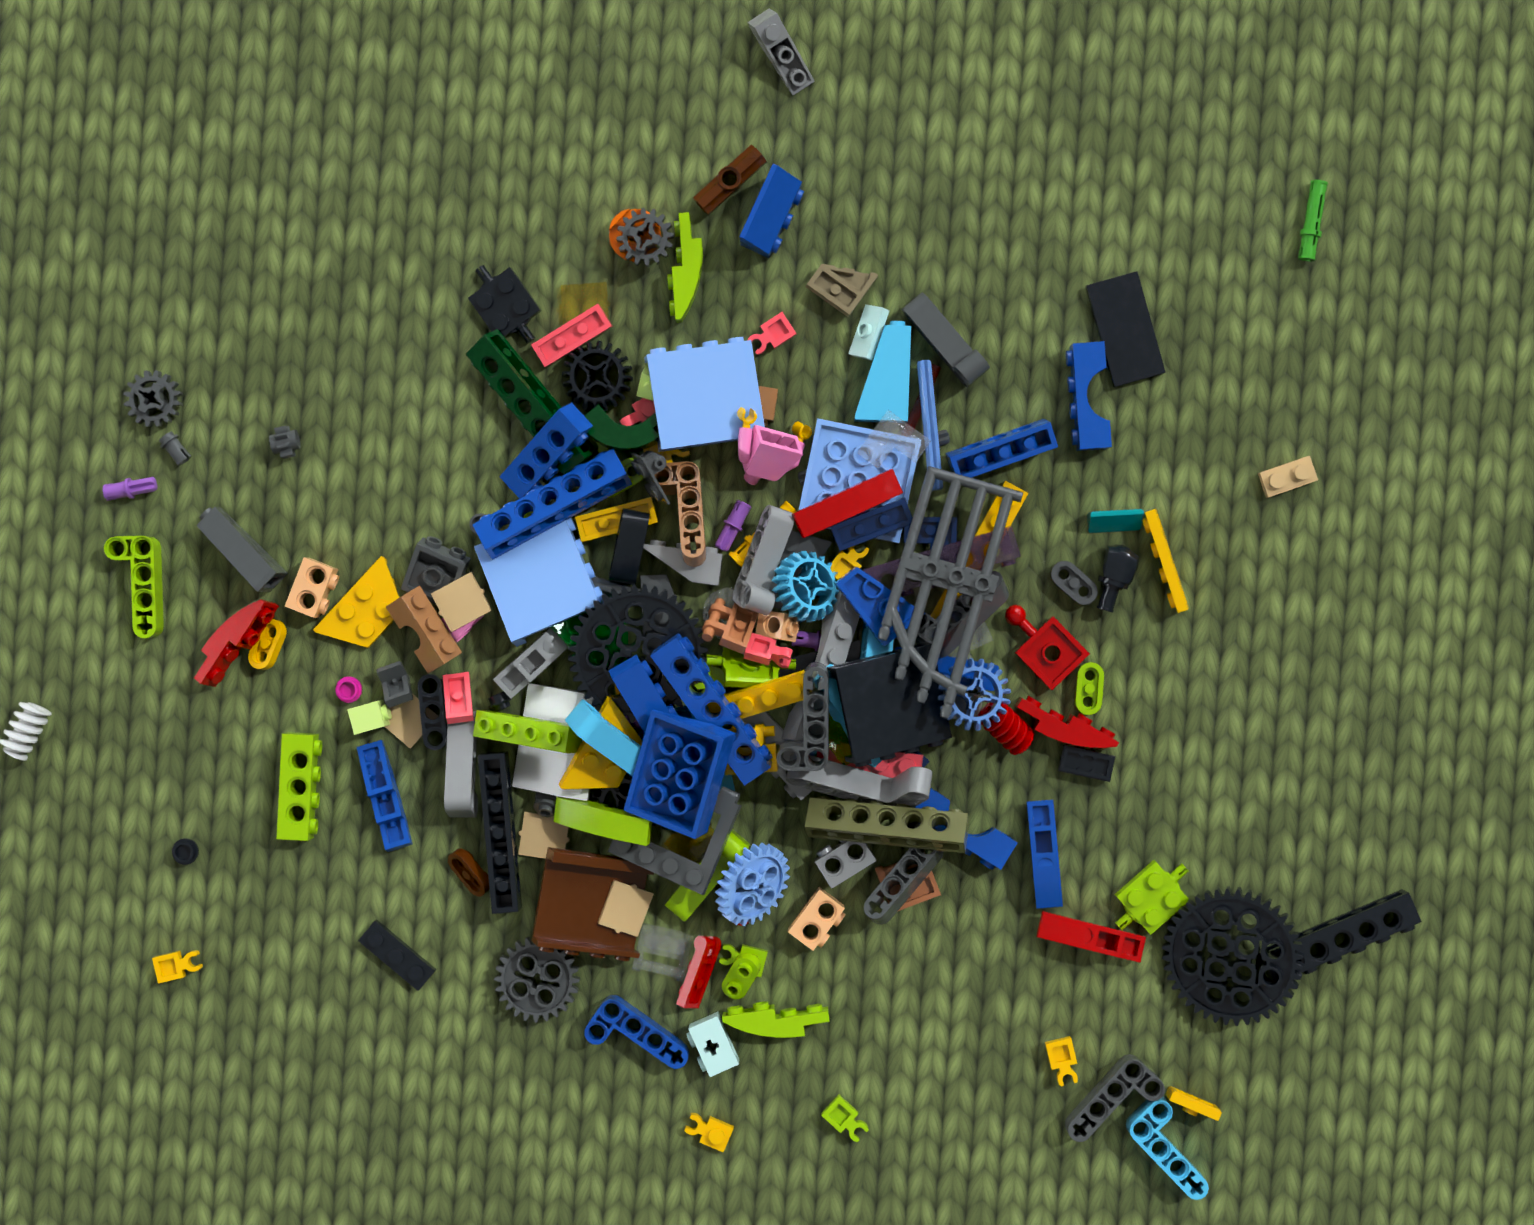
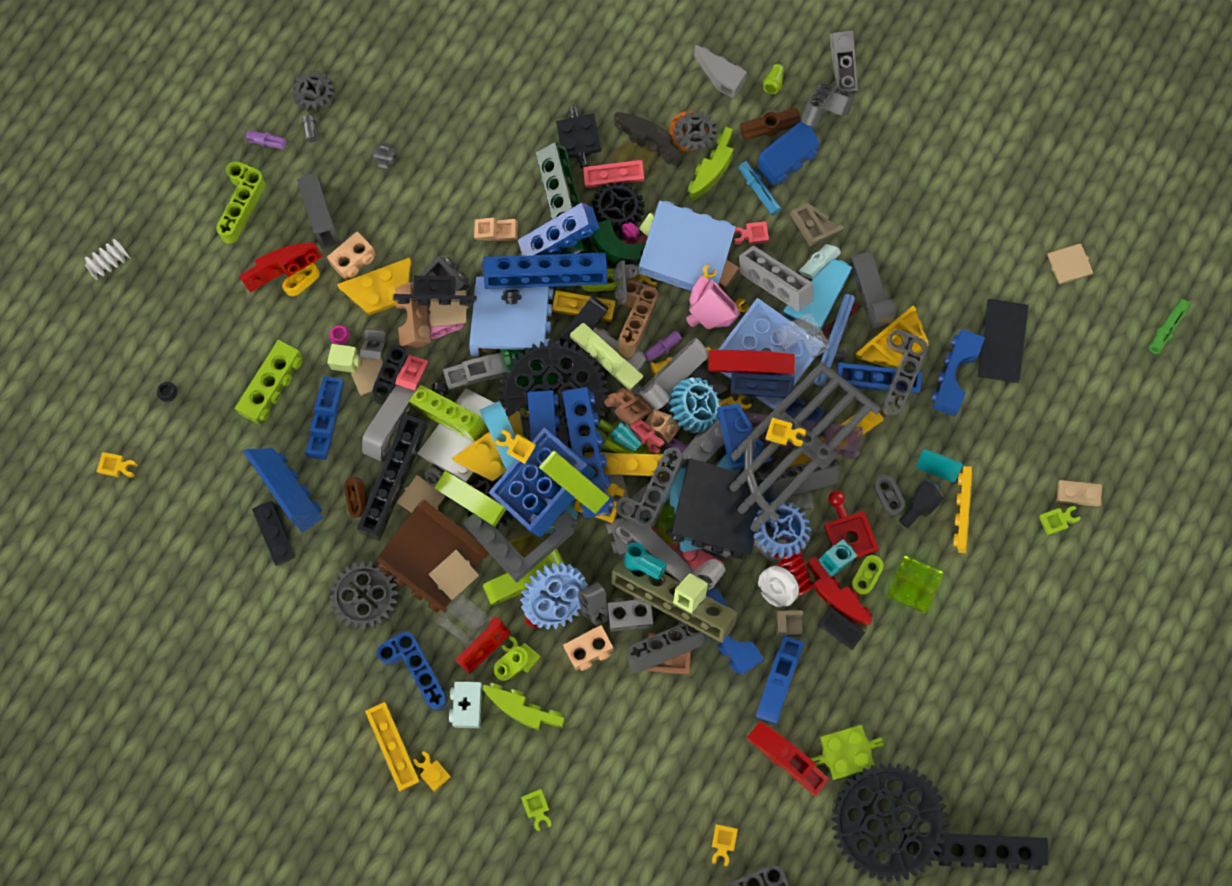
camera: 25 degrees right, 15 degrees down
(383, 904) = (285, 487): none -> blue slope
(436, 594) = (434, 289): none -> black bracket
(465, 471) = (492, 230): none -> light nougat slope
(529, 557) = (511, 296): none -> black plate
(581, 262) = (644, 131): none -> clear smoke slope
(628, 404) = (630, 232): none -> dark pink plate
(635, 750) = (519, 447): none -> yellow plate
(644, 141) = (723, 74): none -> light grey slope
(654, 1126) = (392, 746): none -> yellow plate
(675, 576) = (606, 356): none -> yellowish green bracket
(707, 117) = (773, 81): none -> lime cone
(719, 766) = (574, 482): none -> lime slope
(744, 667) = (625, 436): none -> teal cone
(754, 270) = (759, 188): none -> dark azure pin
(786, 114) = (826, 99): none -> dark grey beam
(800, 870) = (594, 604): none -> dark grey piece
(829, 385) = (776, 278): none -> light grey brick
(839, 803) = (638, 559): none -> teal piece
(906, 817) = (690, 593): none -> yellowish green brick
(924, 584) = (781, 432): none -> yellow plate
(996, 752) = (778, 586): none -> white tile
(1004, 392) = (877, 350): none -> yellow wing
(1025, 784) = (788, 623): none -> dark tan panel
(1027, 442) = (900, 374): none -> dark grey beam
(1044, 699) = (831, 561): none -> teal brick
(1147, 673) = (915, 585): none -> clear neon green slope
(1164, 192) = (1070, 263): none -> tan piece
(1274, 523) = (1057, 521): none -> lime plate

